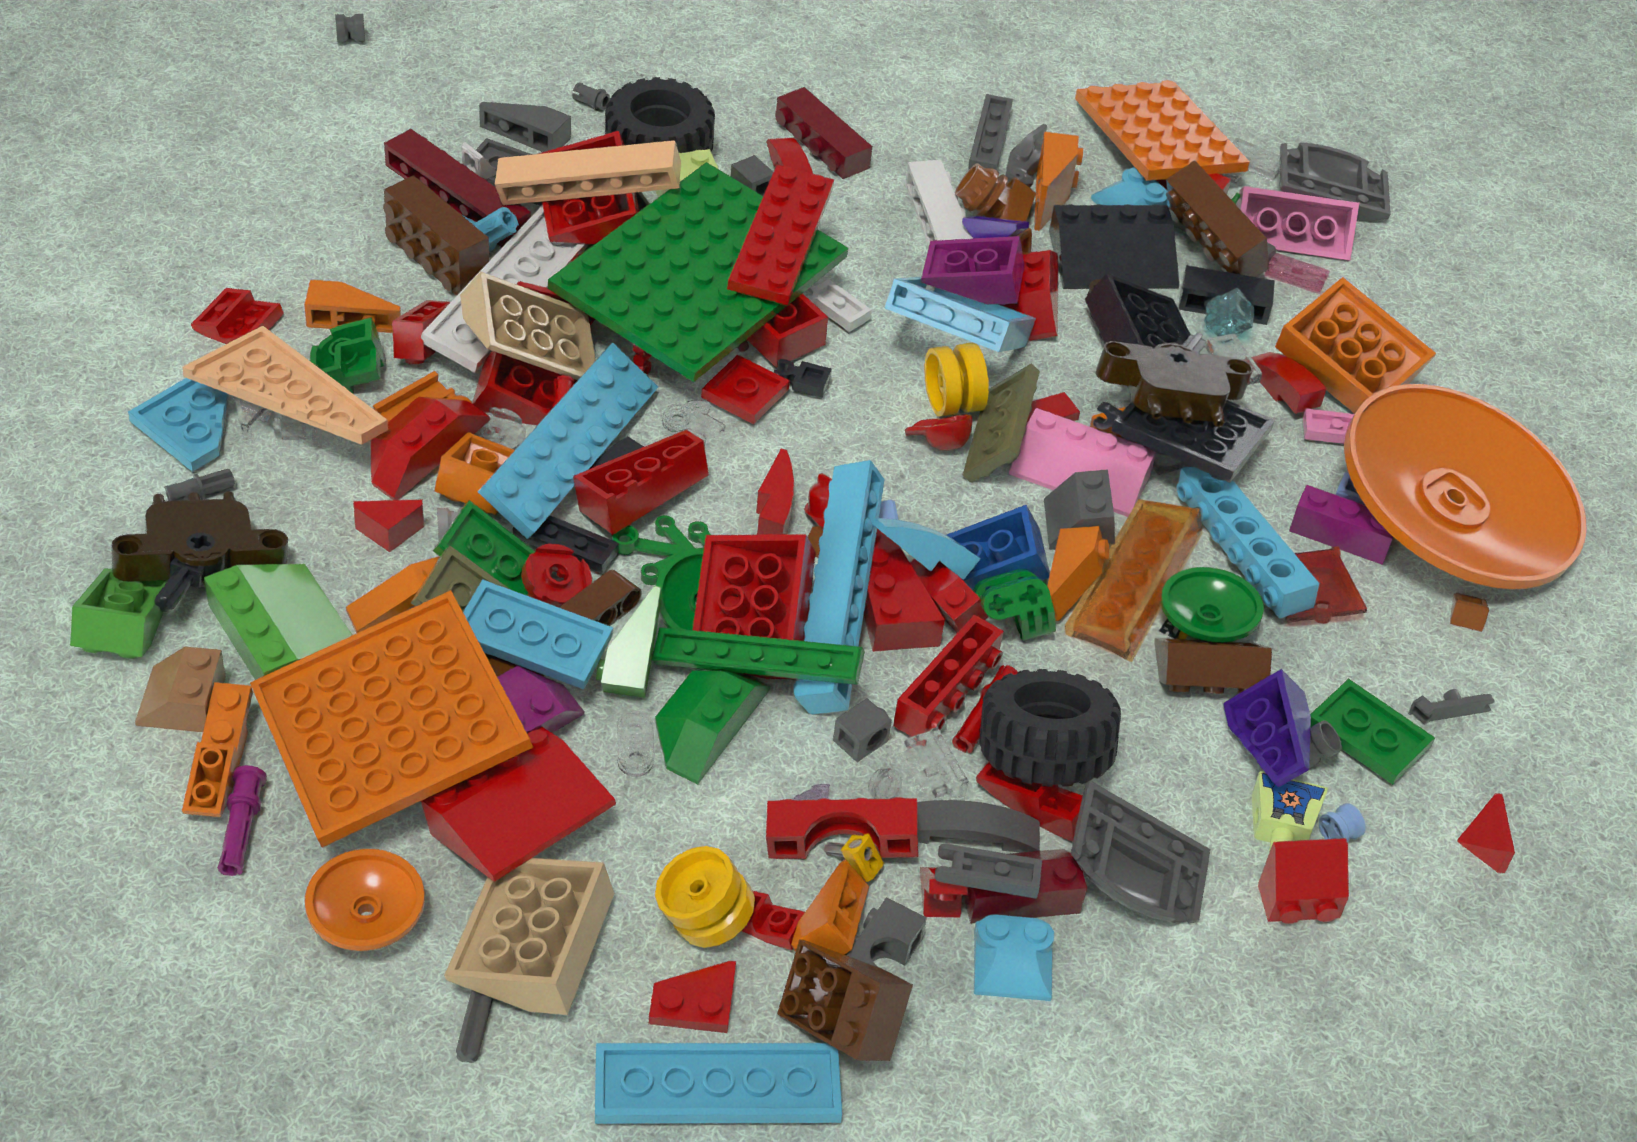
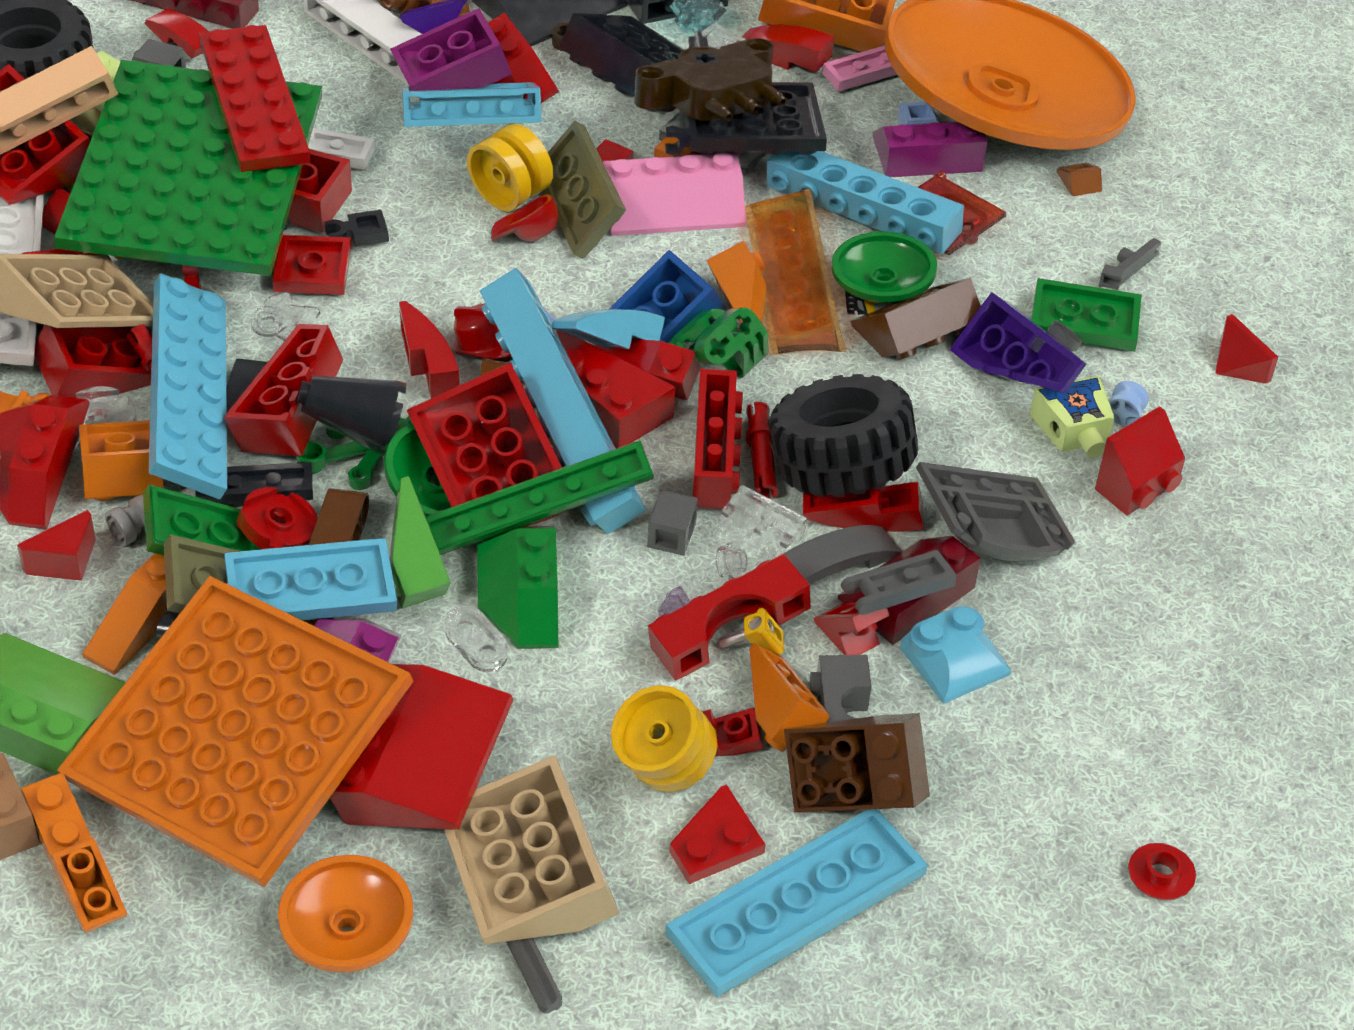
camera: 30 degrees left, 0 degrees up
(243, 806) = (141, 893): magenta pin -> none
(671, 514) = (354, 407): none -> black cone
(1081, 502) = (705, 229): dark grey slope -> none

